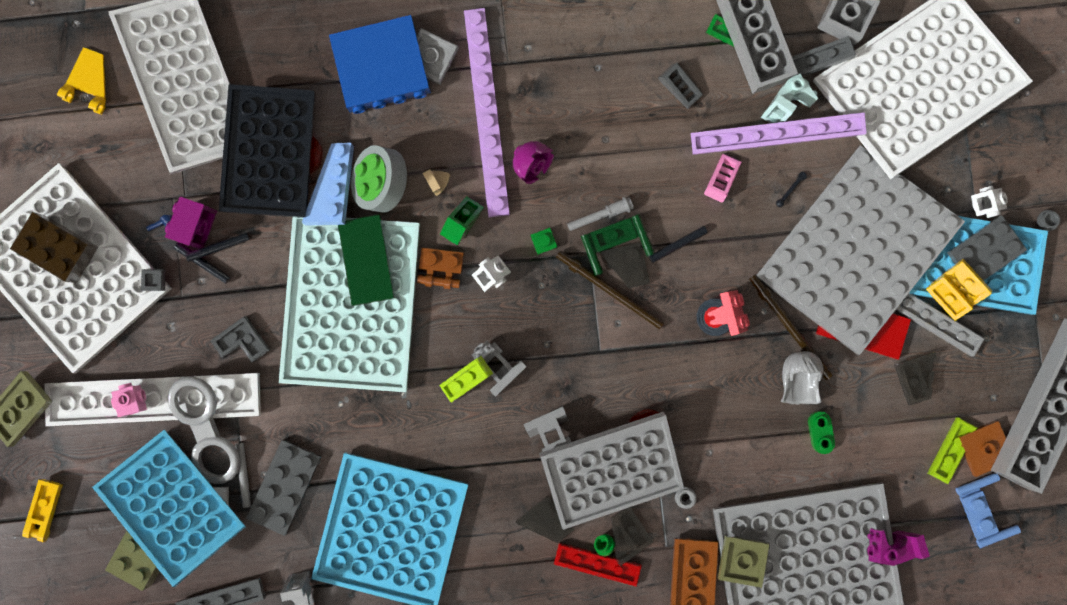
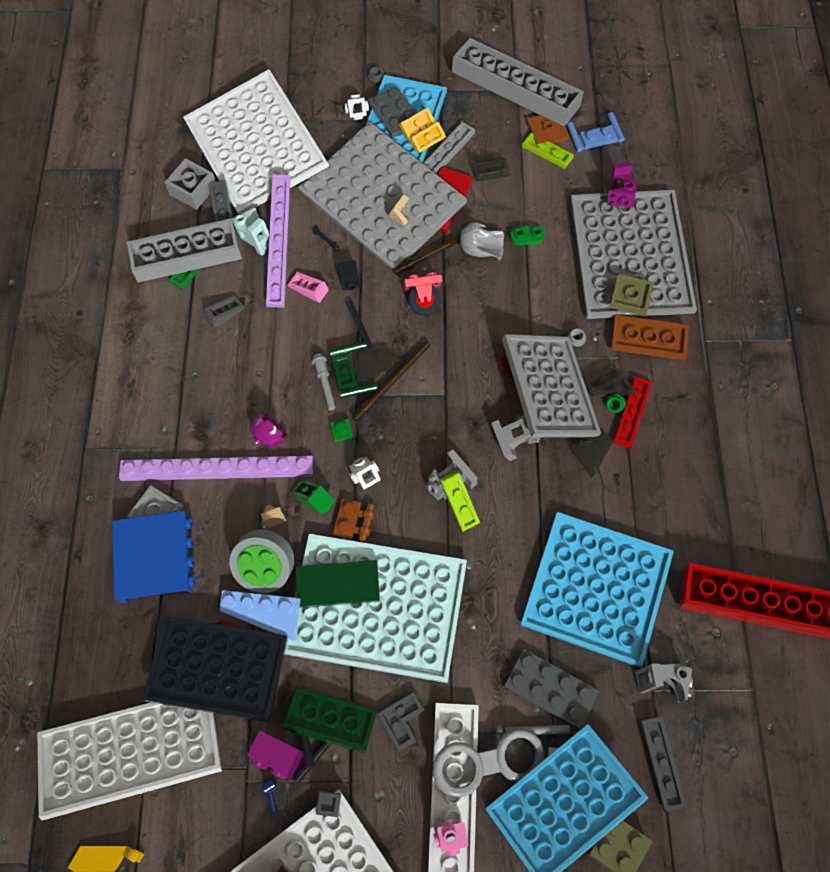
camera: 85 degrees left, 20 degrees down
(232, 271) = (330, 719): none -> dark green tile
(739, 224) = (348, 275): none -> black brick
(832, 272) = (396, 214): none -> tan tile

